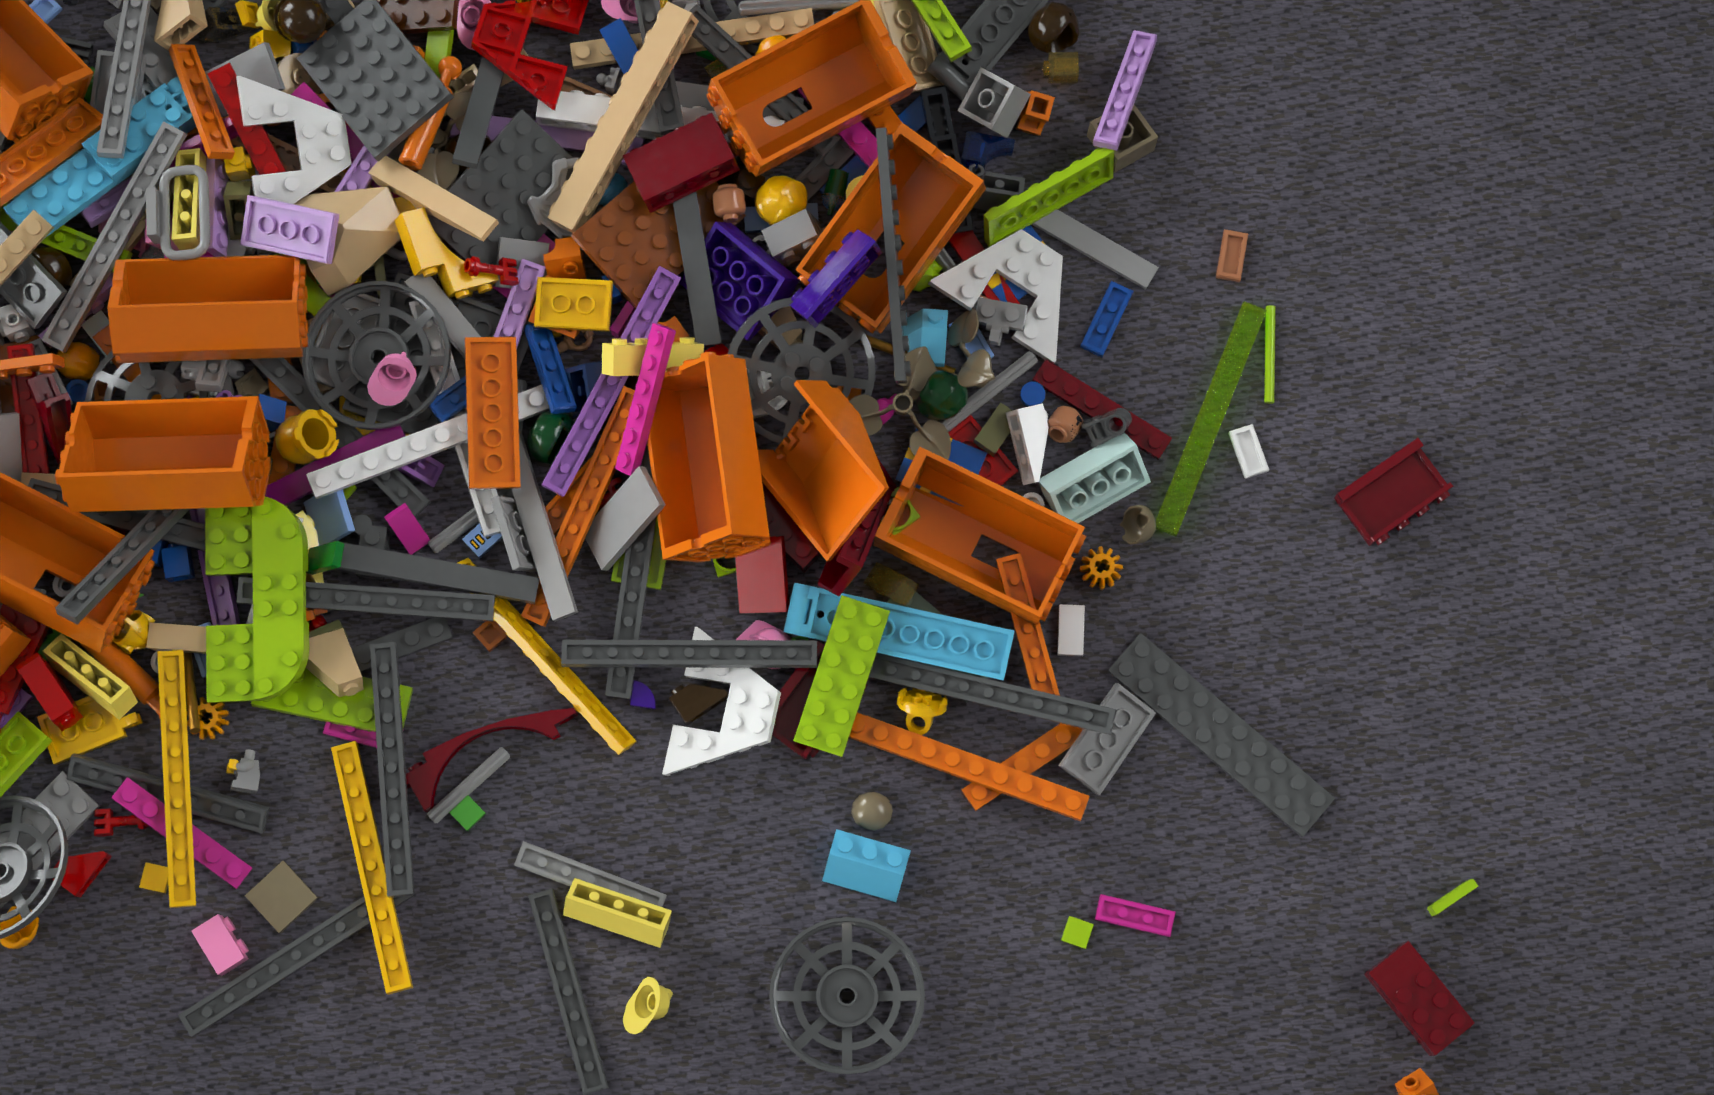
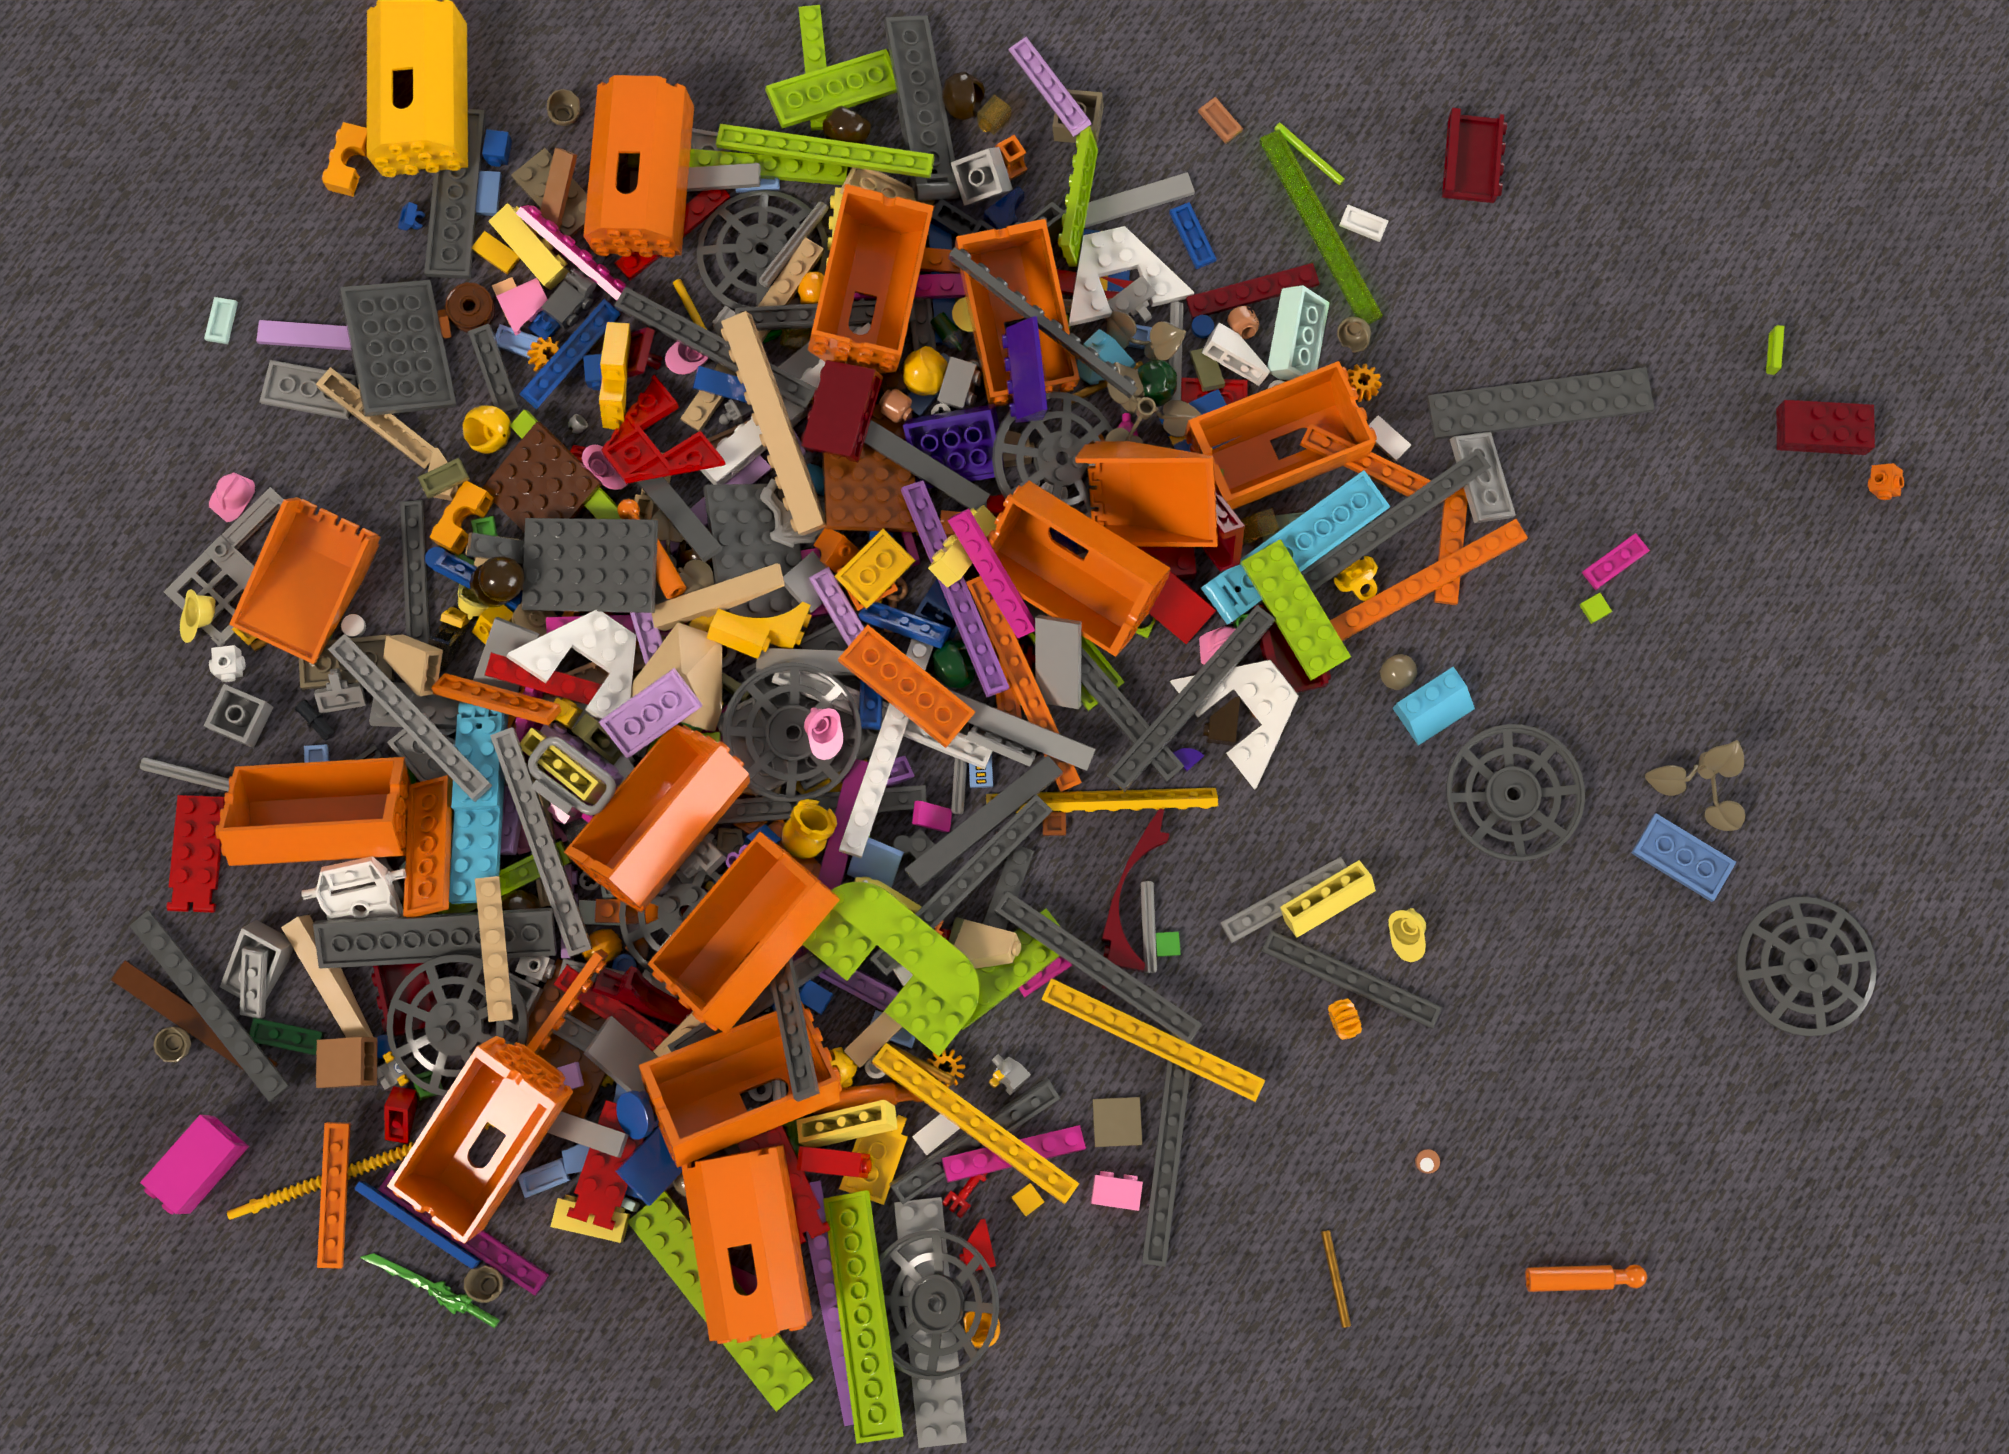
camera: 50 degrees left, 0 degrees up
(144, 755) = (935, 1133): none -> white tile
(325, 557) = (909, 886): green tile -> none
(505, 269) = (790, 610): red hinge -> none
(525, 1012) = (1344, 1019): none -> light orange gear
(1102, 427) = (1270, 297): dark grey piece -> none

